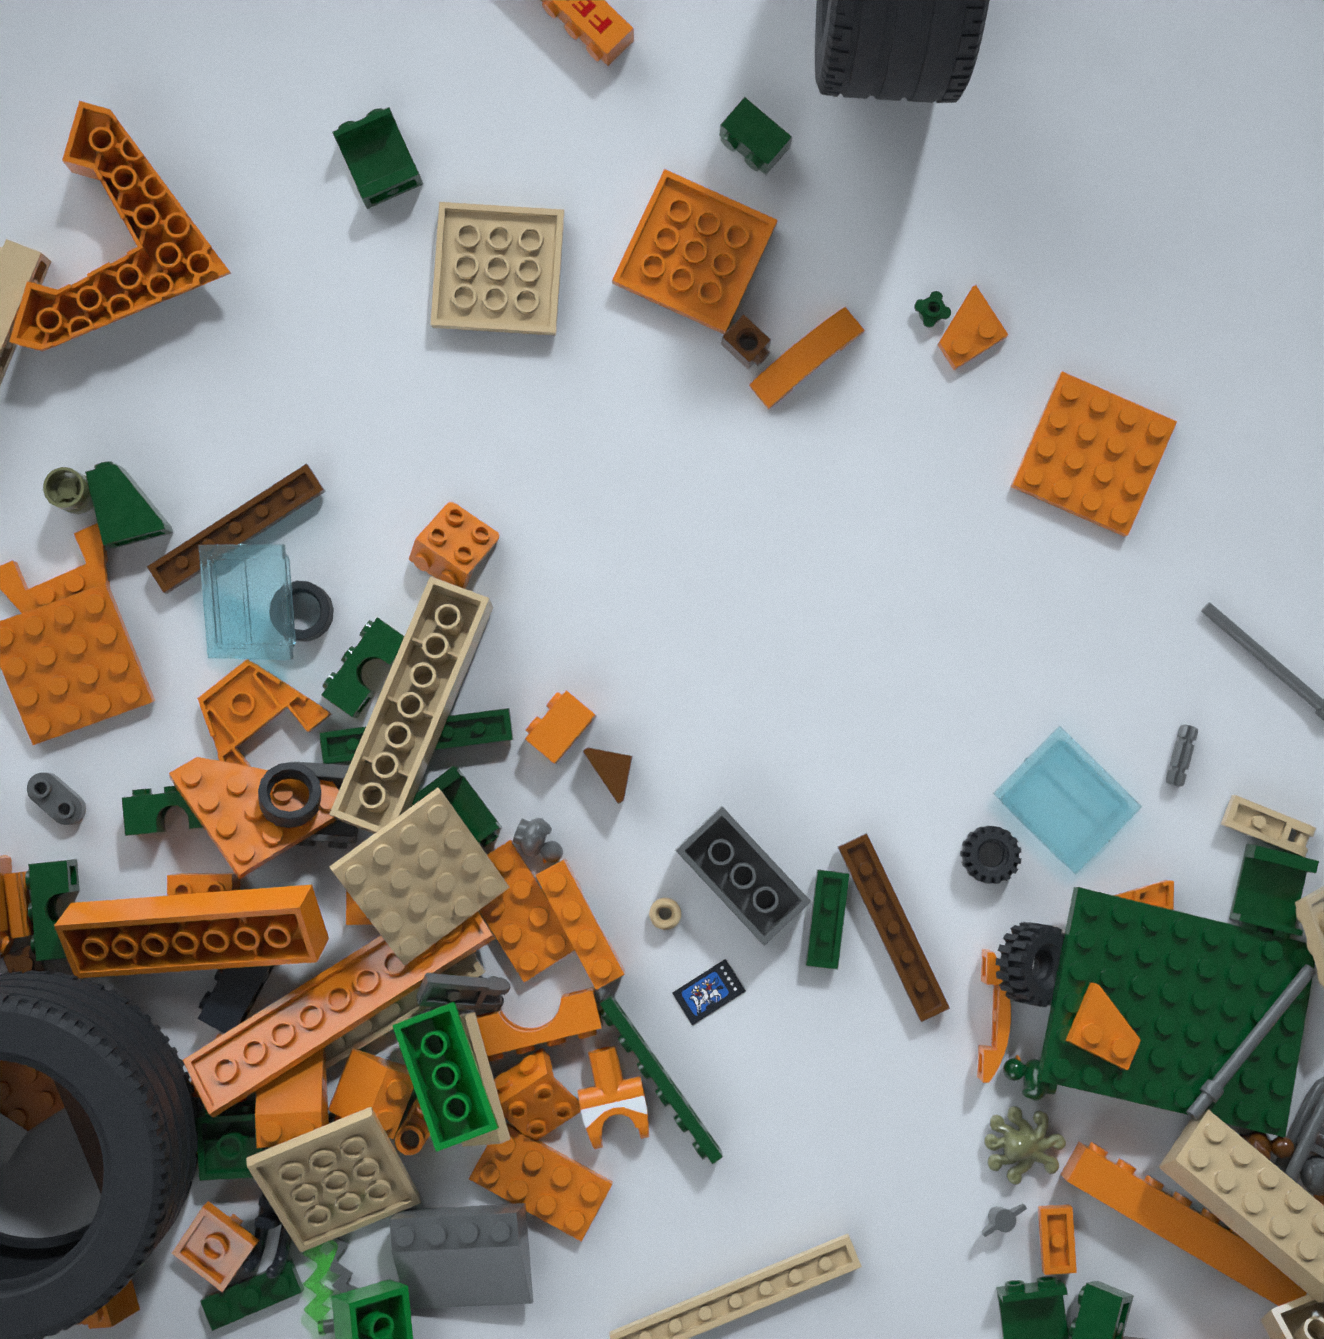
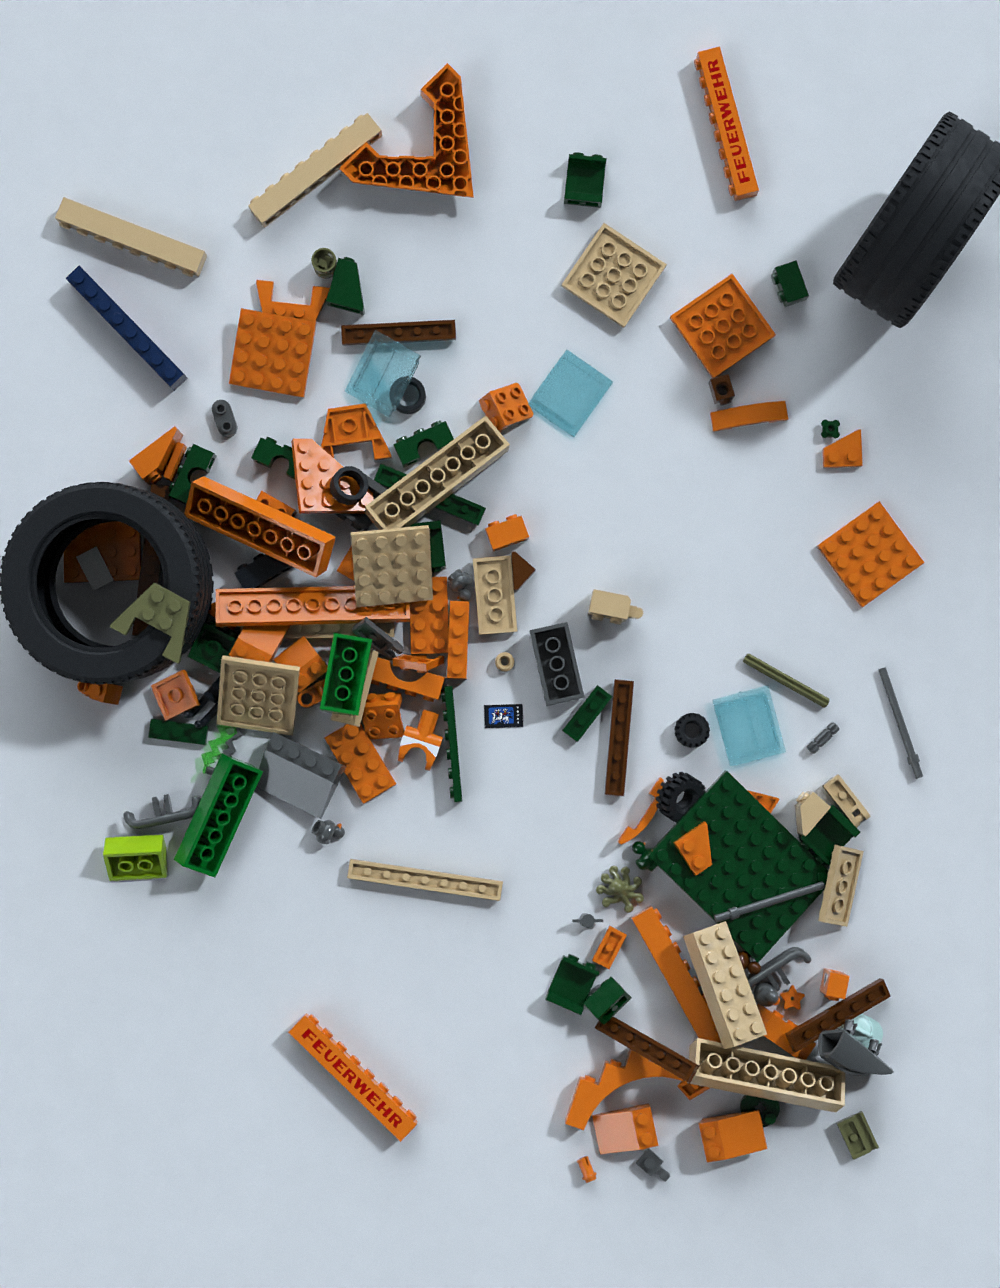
camera: 30 degrees right, 0 degrees up
(109, 1161) = (164, 612): none -> olive wing
(533, 472) = (570, 393): none -> clear light blue piece
(540, 991) = (417, 662): none -> orange wing
(549, 1313) = (326, 829): none -> dark grey animal
(595, 826) = (495, 595): none -> tan plate
(775, 745) = (612, 607): none -> tan hinge
(1081, 703) = (786, 680): none -> olive axle
(1229, 877) = (809, 811): none -> tan slope

